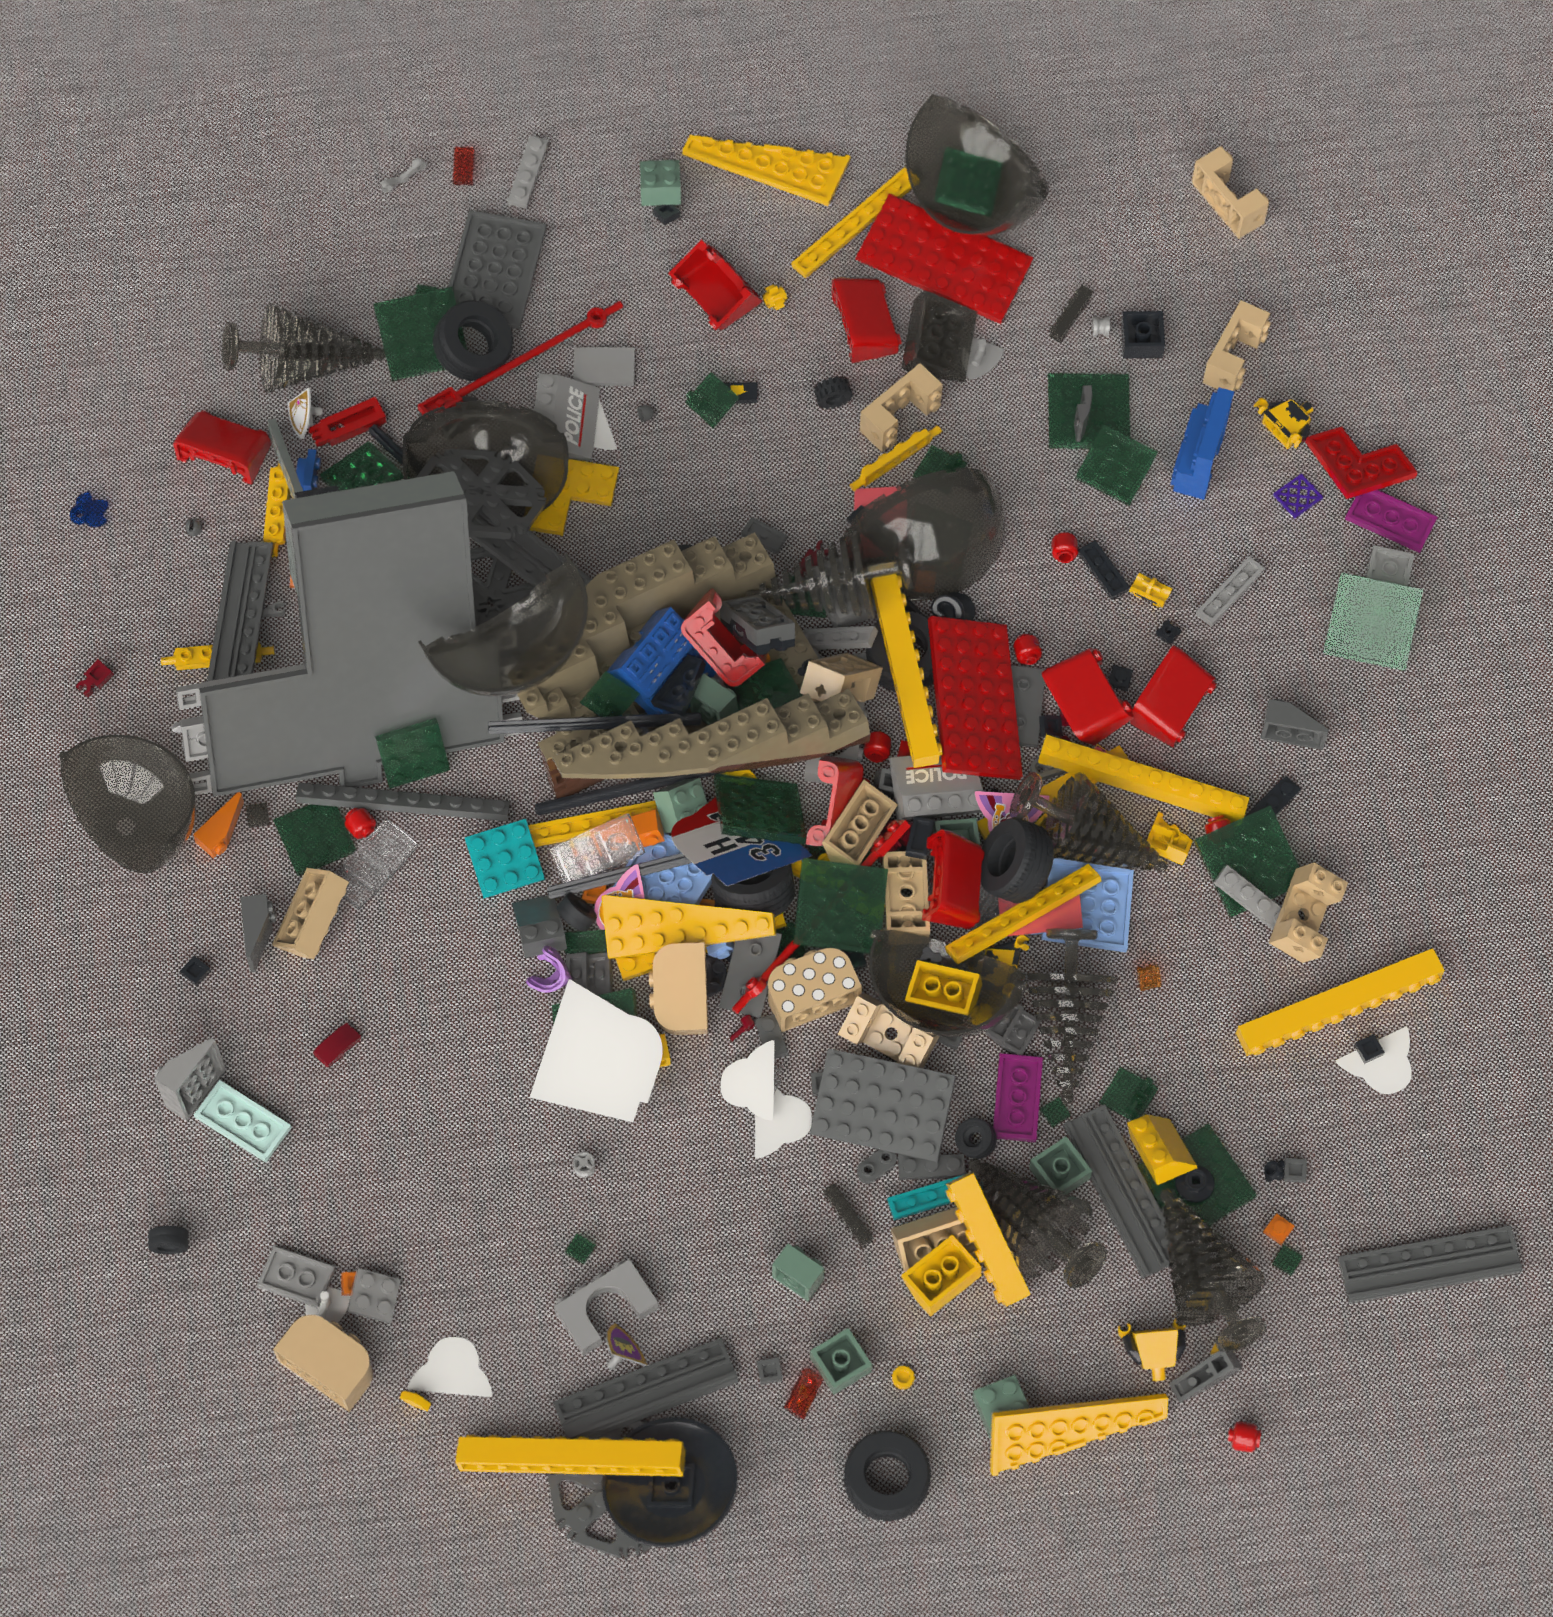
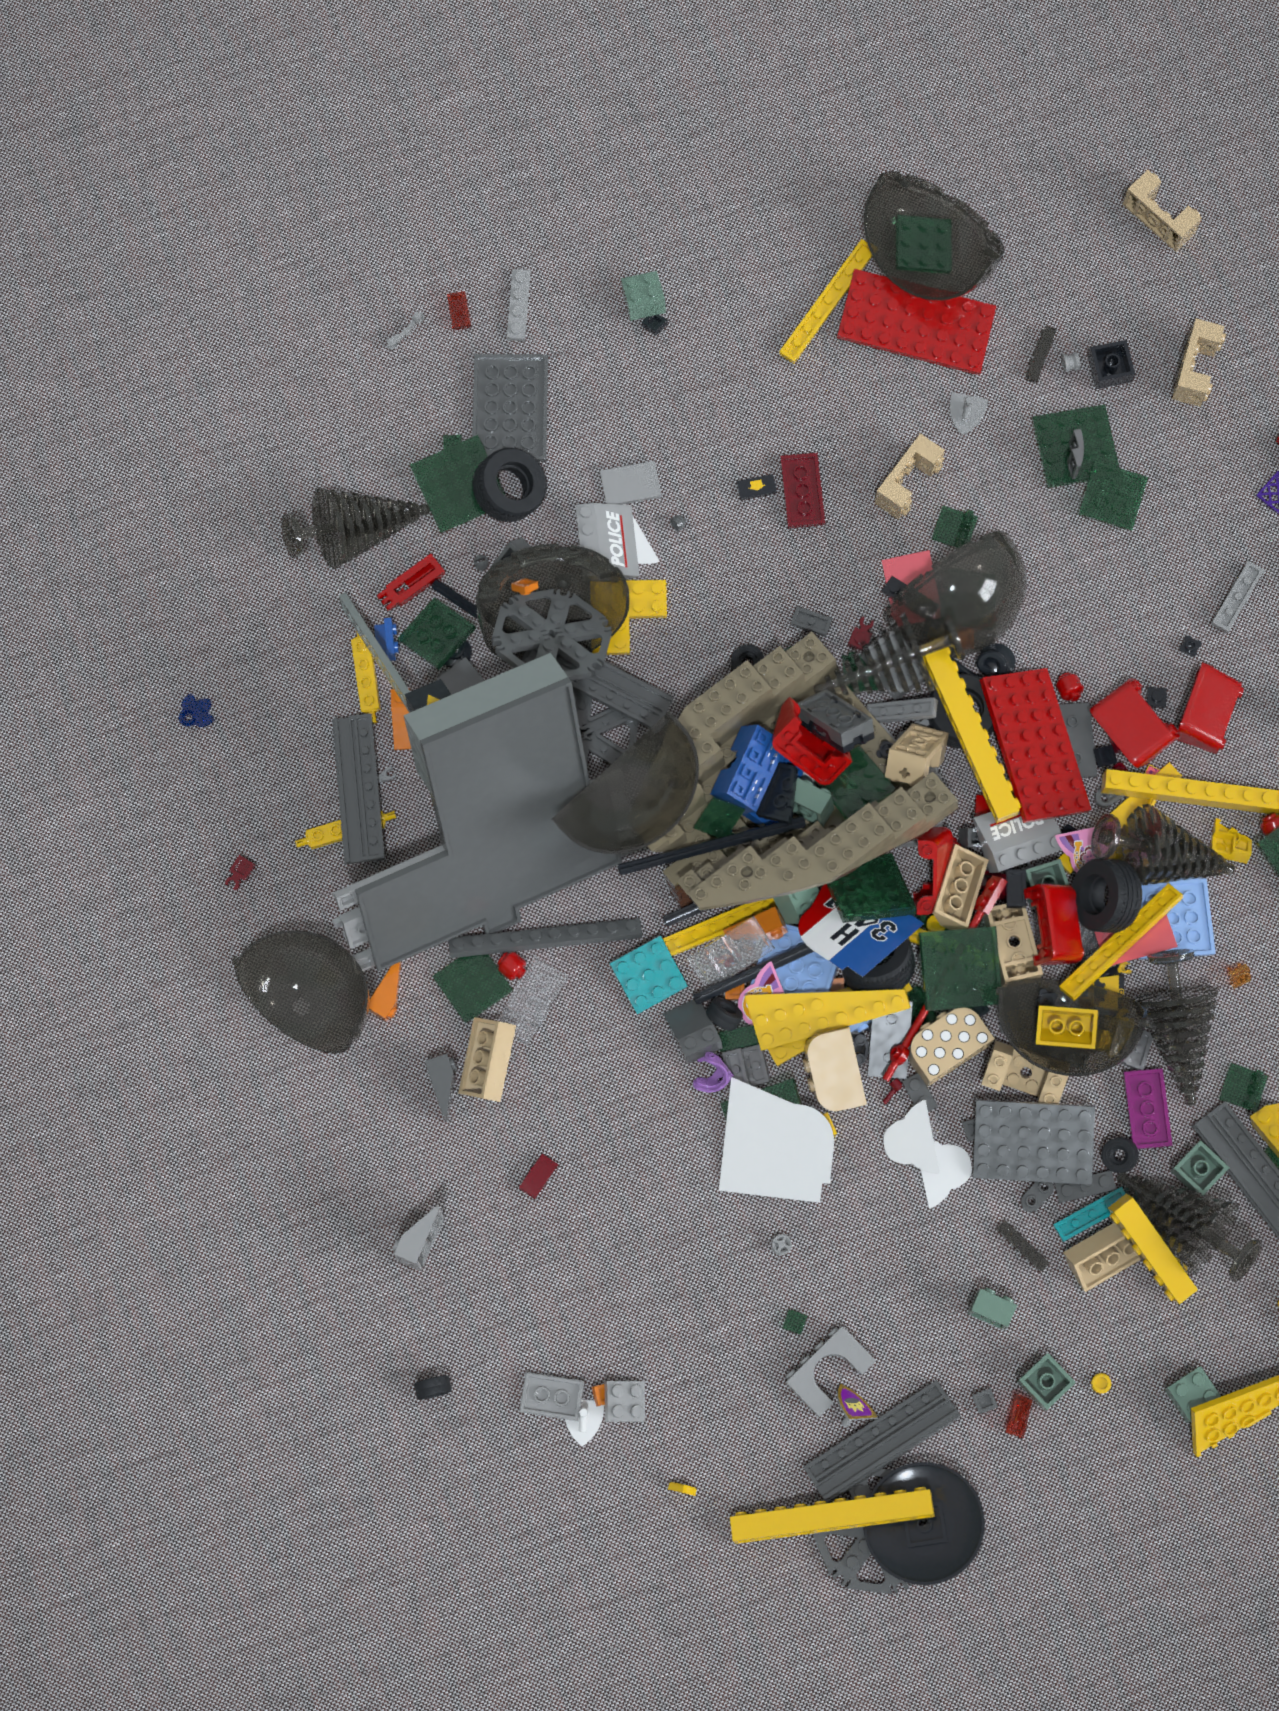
camera: 10 degrees left, 10 degrees up
(195, 971) = (396, 1132): black plate -> none
(197, 528) = (298, 710): dark grey hinge -> none
(223, 444) = (303, 626): red windscreen -> none
(242, 1121) = (471, 1263): light aqua plate -> none
(257, 815) = (417, 973): clear smoke plate -> none
(302, 413) = (366, 582): shield -> none
(326, 1359) = (598, 1469): tan brick -> none
(412, 753) = (545, 893): clear green plate -> none
(449, 397) = (502, 546): red bar -> none
(452, 1370) = (707, 1453): white sticker -> none
(464, 442) = (524, 586): none -> orange plate
(711, 400) = (736, 499): clear green hinge -> none
(714, 285) = (715, 387): red windscreen -> none
(774, 297) = (771, 388): yellow gear -> none
(785, 404) = (802, 490): none -> dark red plate
(794, 171) = (758, 260): yellow wing -> none
(833, 392) = (845, 473): black tyre -> none
(865, 318) = (858, 394): red windscreen -> none
(878, 747) = (963, 806): red head -> none
(895, 1446) = (1135, 1472): black tyre -> none
(900, 453) = (917, 518): yellow plate -> none
(939, 337) = (927, 401): clear smoke slope -> none
(941, 1275) = (1116, 1286): yellow slope -> none
(1055, 1112) = (1182, 1115): clear green tile -> none
(1064, 547) = (1082, 583): red head -> none
(1103, 570) = (1121, 598): black plate -> none
(1150, 590) = (1167, 610): yellow hips -> none
(1201, 444) = (1189, 464): blue piece -> none
(1286, 420) = (1256, 424): torso -> none

